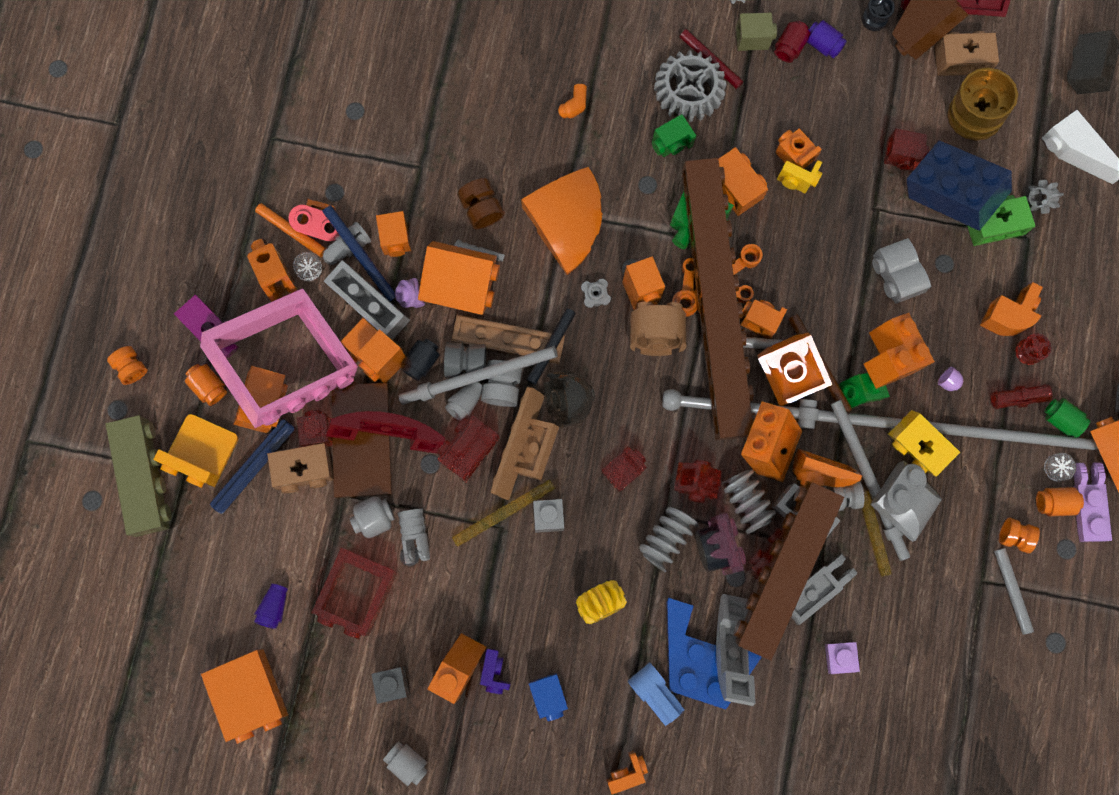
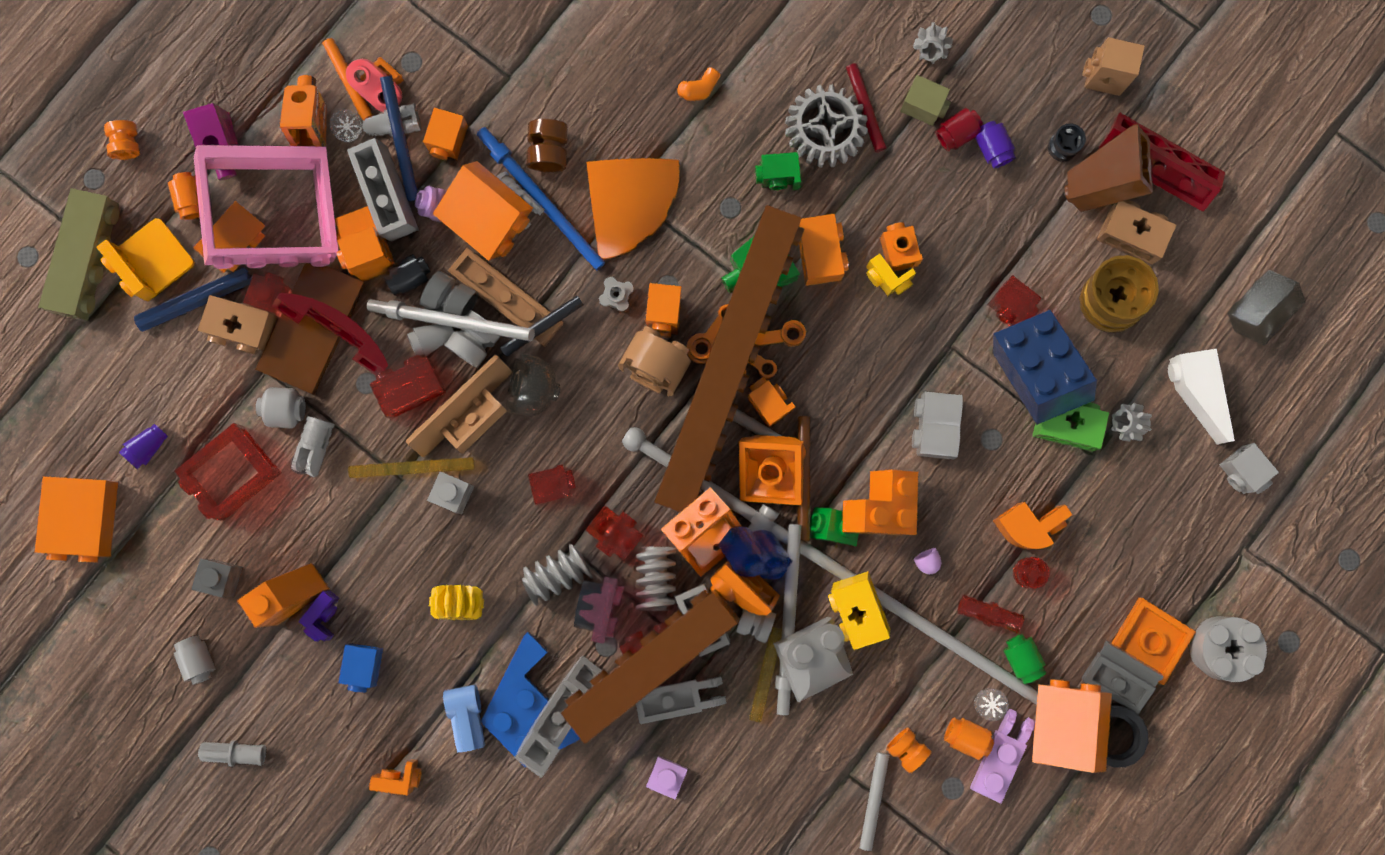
camera: 30 degrees right, 5 degrees up
(446, 229) = (502, 155): none -> blue bar
(819, 439) = (755, 553): none -> clear blue brick

